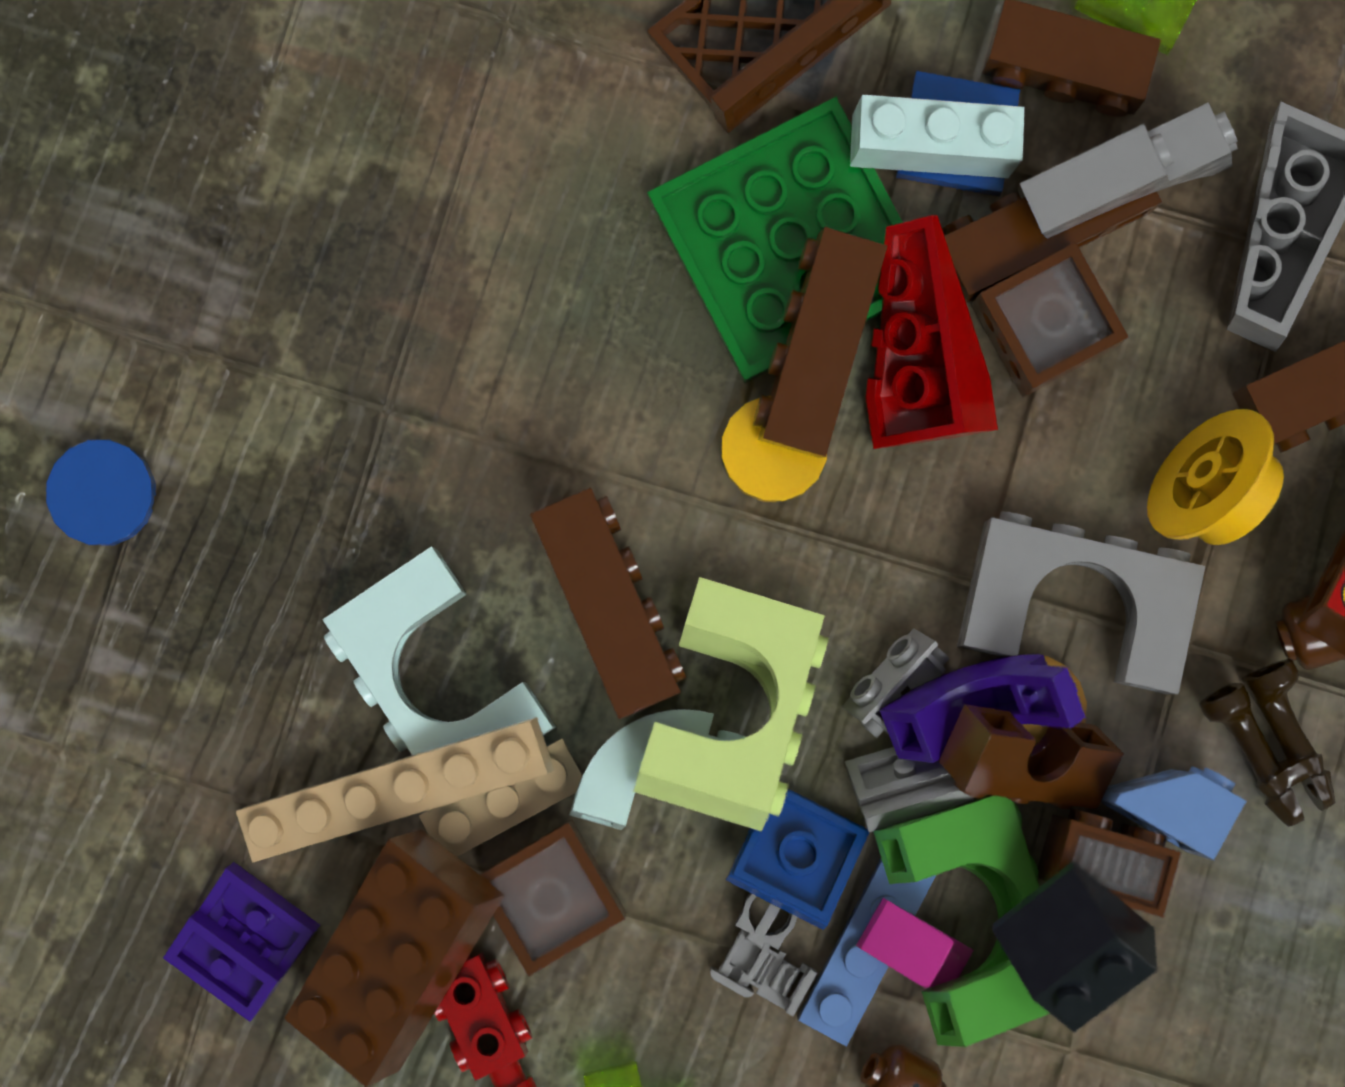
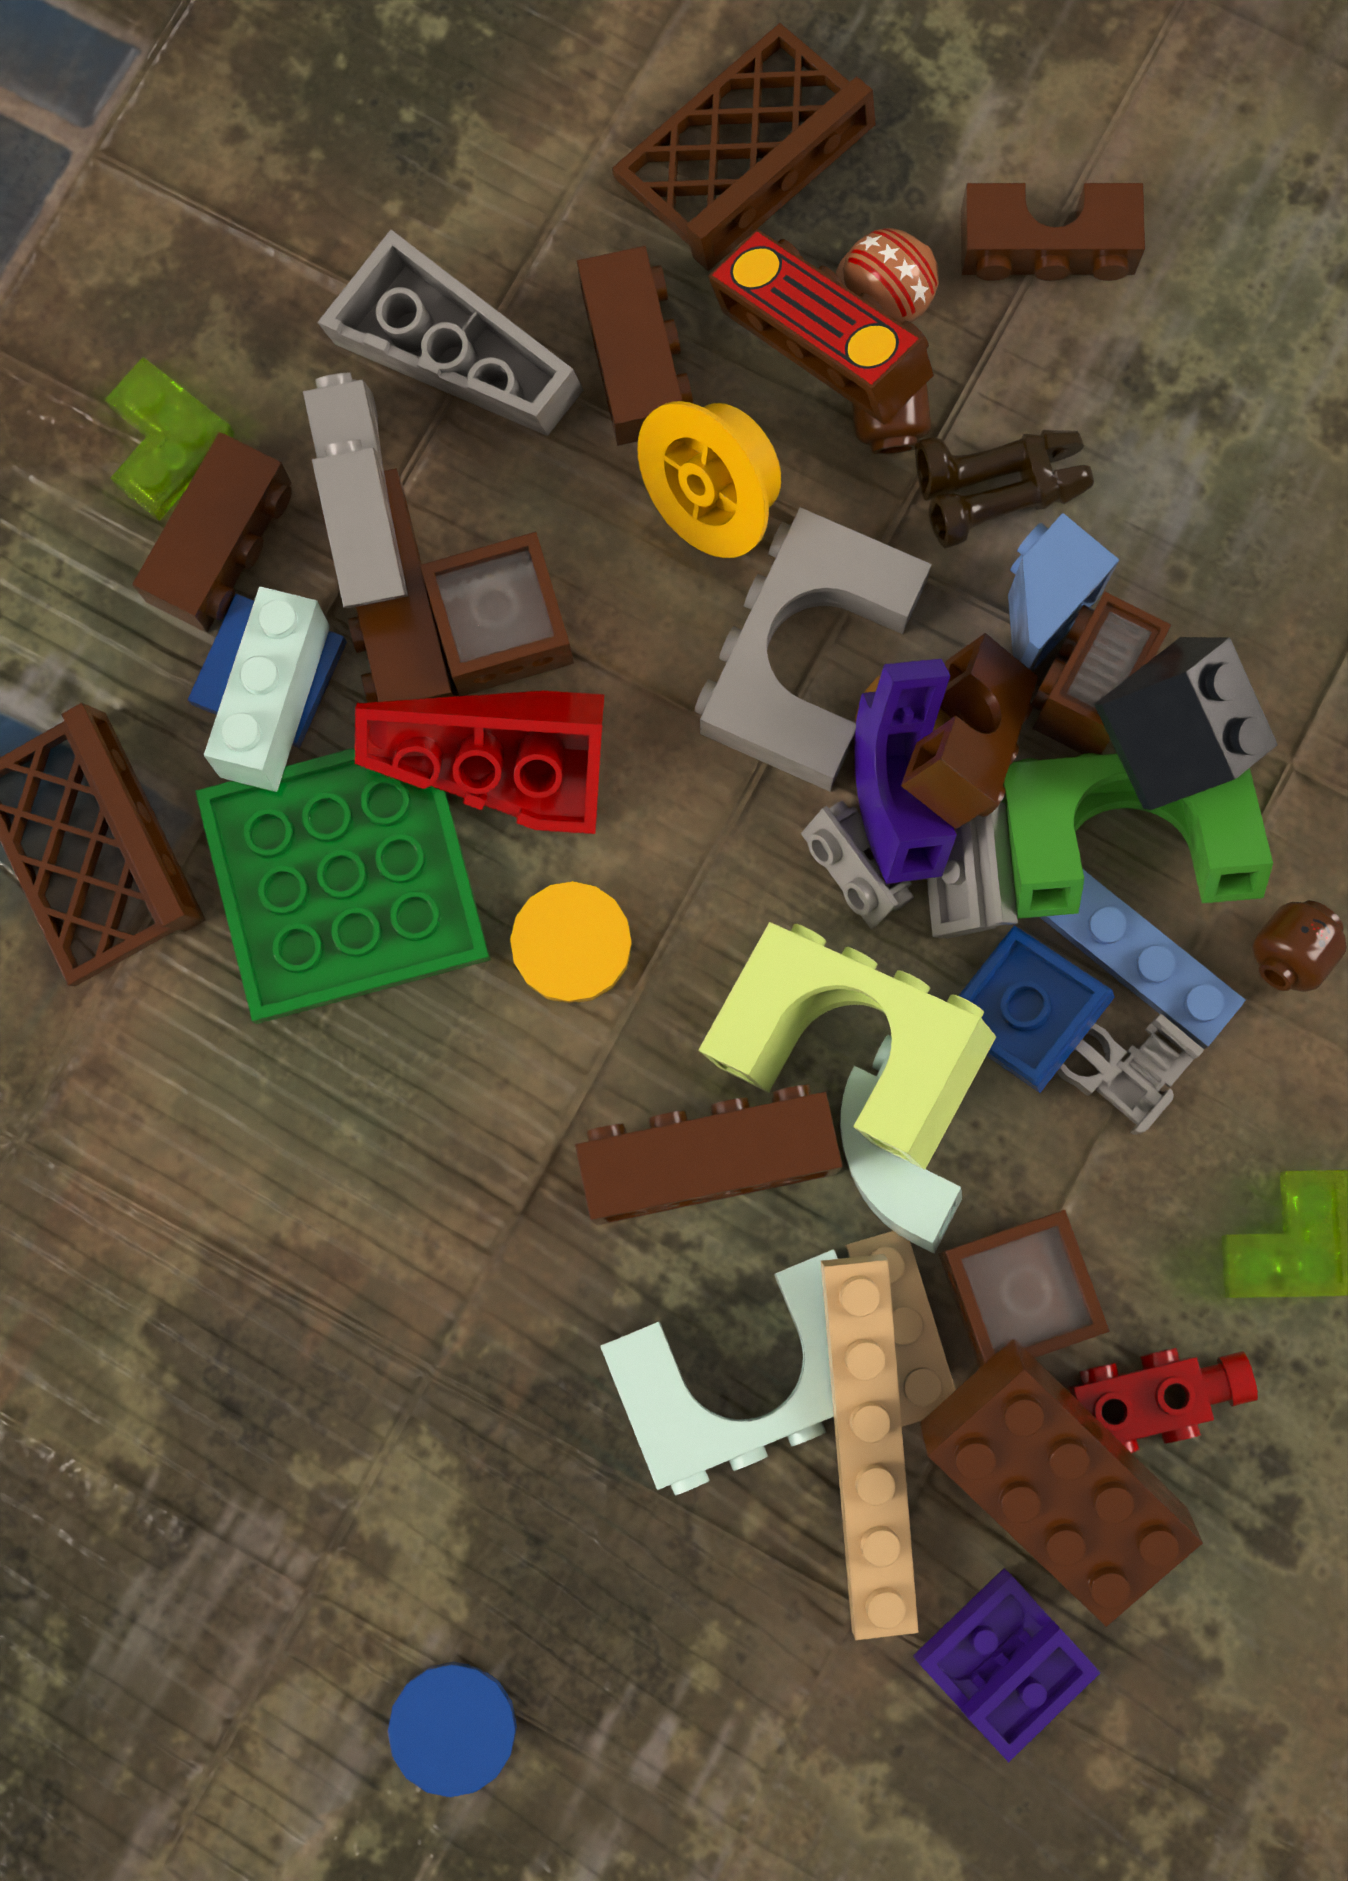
camera: 75 degrees left, 5 degrees down
(821, 342) = (466, 861): reddish brown brick -> none
(913, 946) = (1150, 903): dark pink slope -> none

